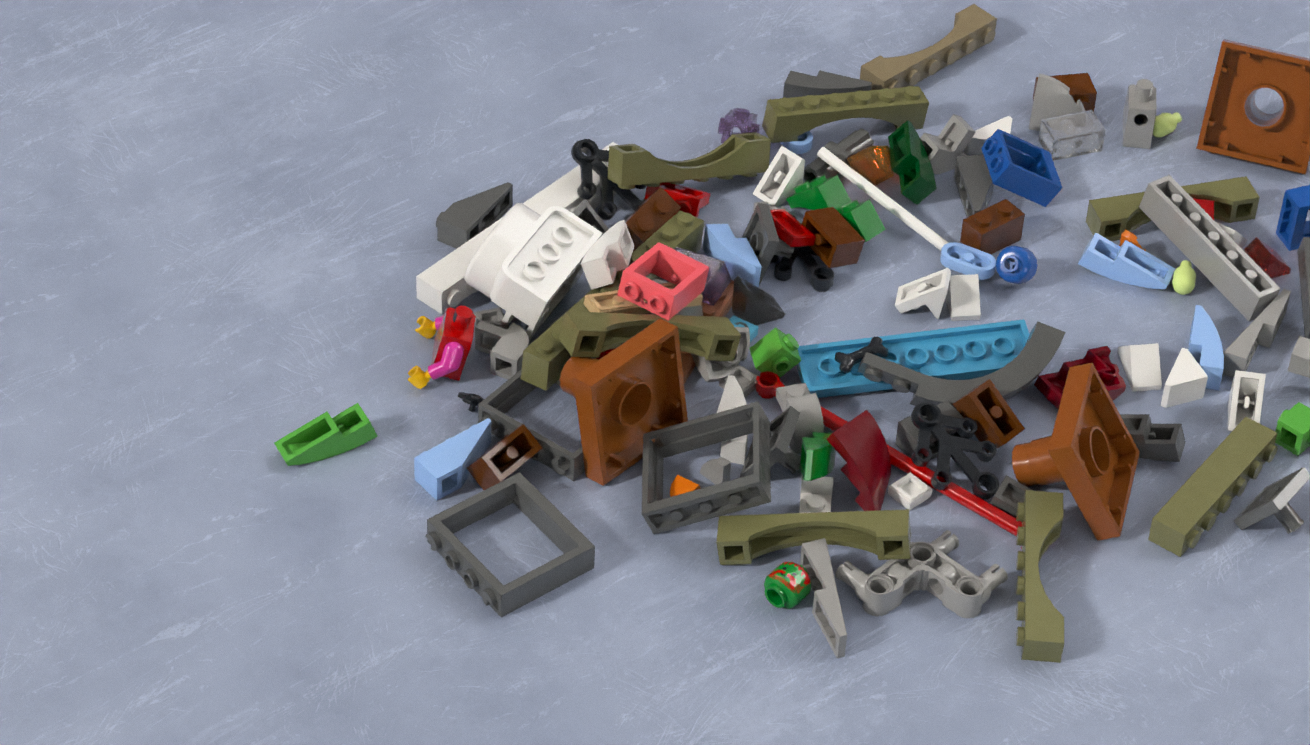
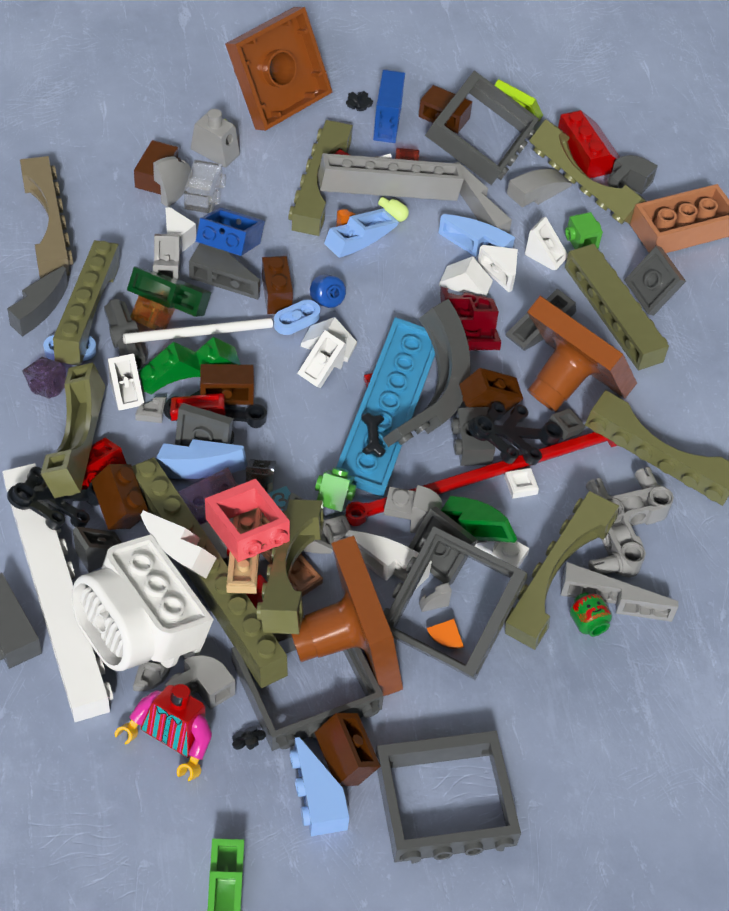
camera: 65 degrees left, 10 degrees up
(867, 459) = (493, 492): dark red slope -> none

